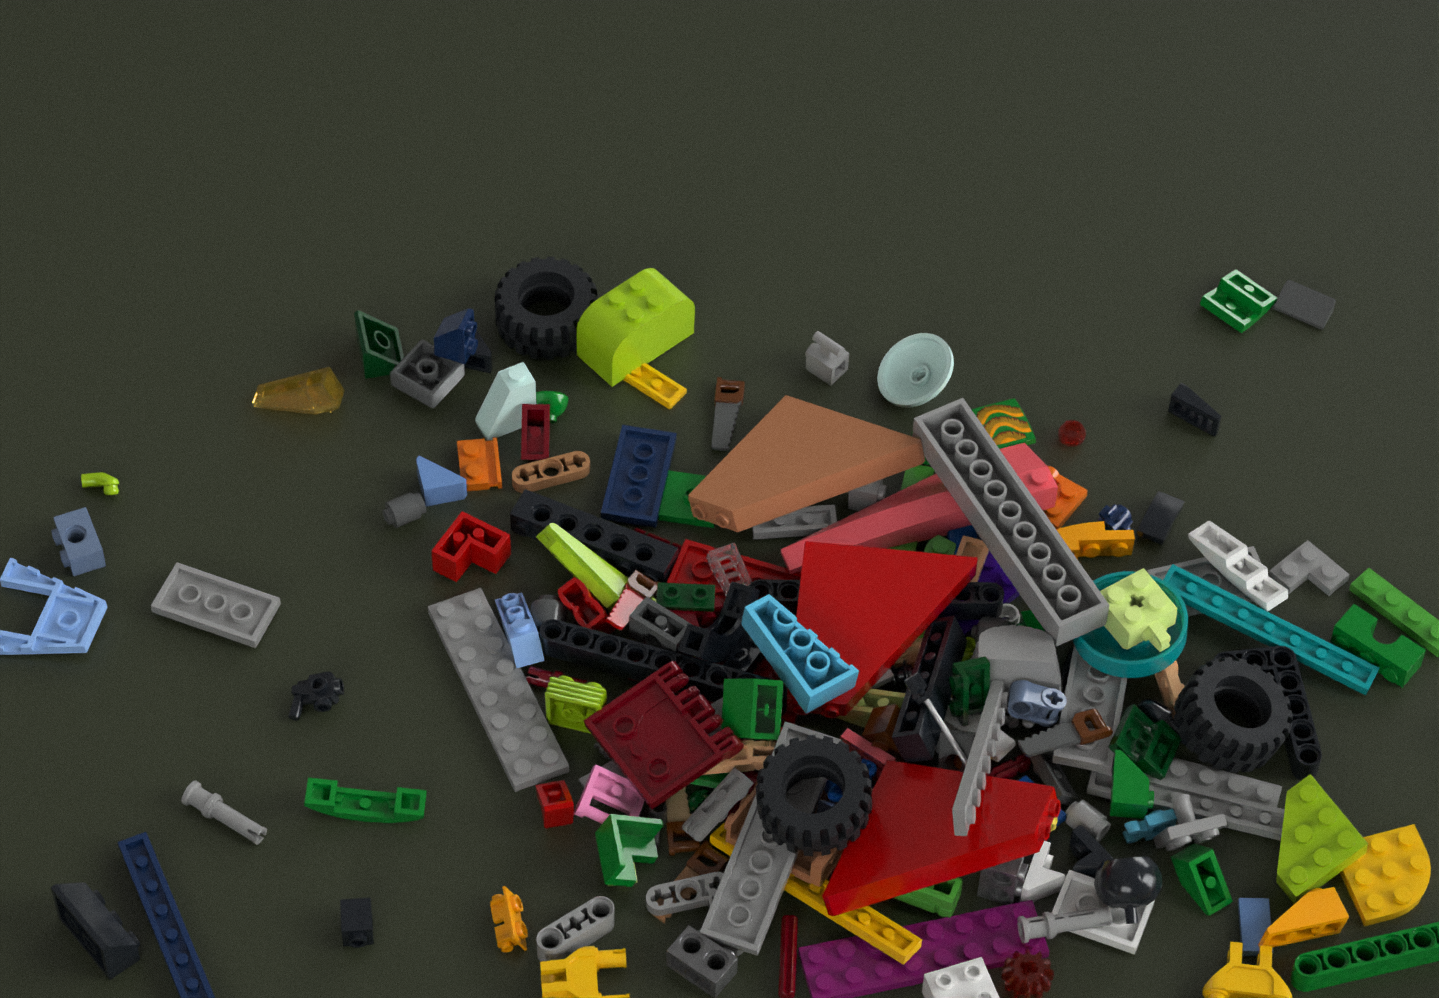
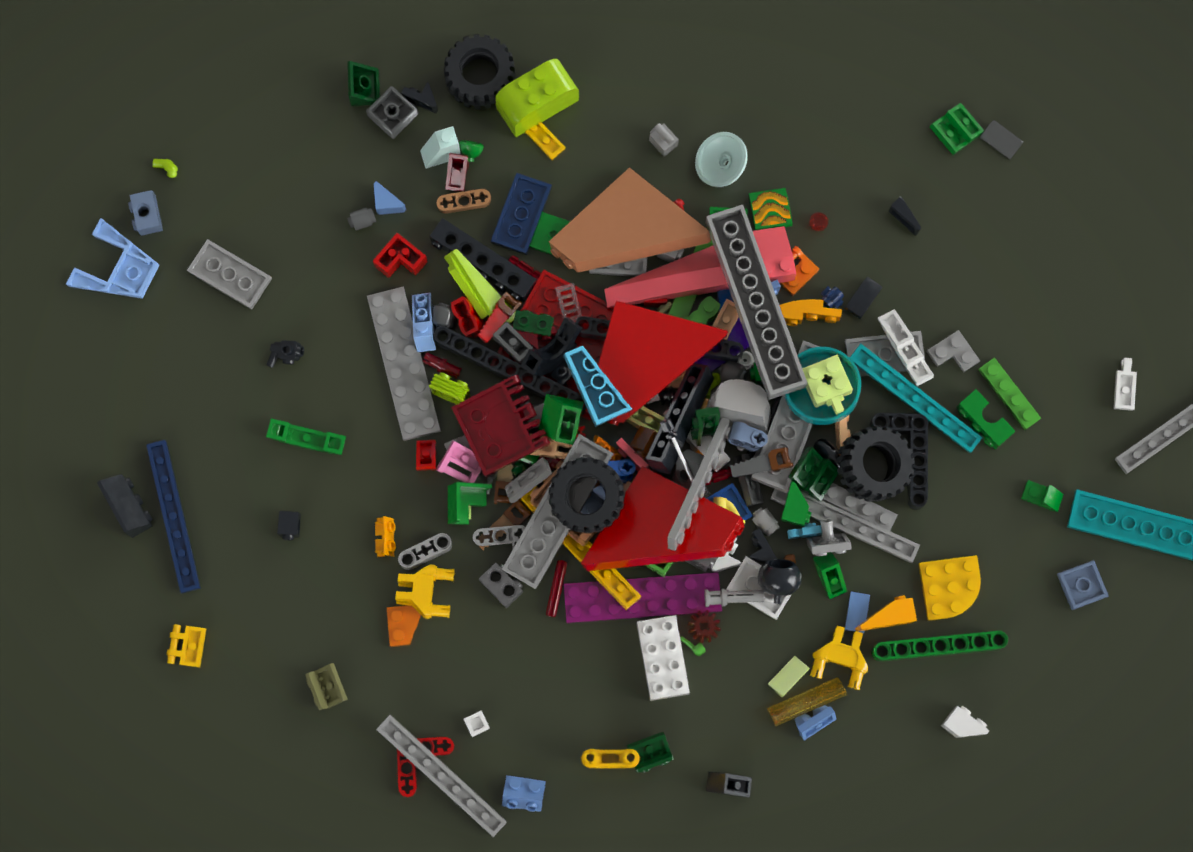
camera: 10 degrees right, 25 degrees up
(212, 806) = (209, 426): light grey pin -> none
(303, 393) = (306, 116): clear yellow slope -> none
(456, 337) = (412, 94): dark blue slope -> none
(479, 463) = (417, 187): orange plate -> none
(726, 412) = (588, 170): dark grey piece -> none
(1314, 840) = (906, 564): lime brick -> none

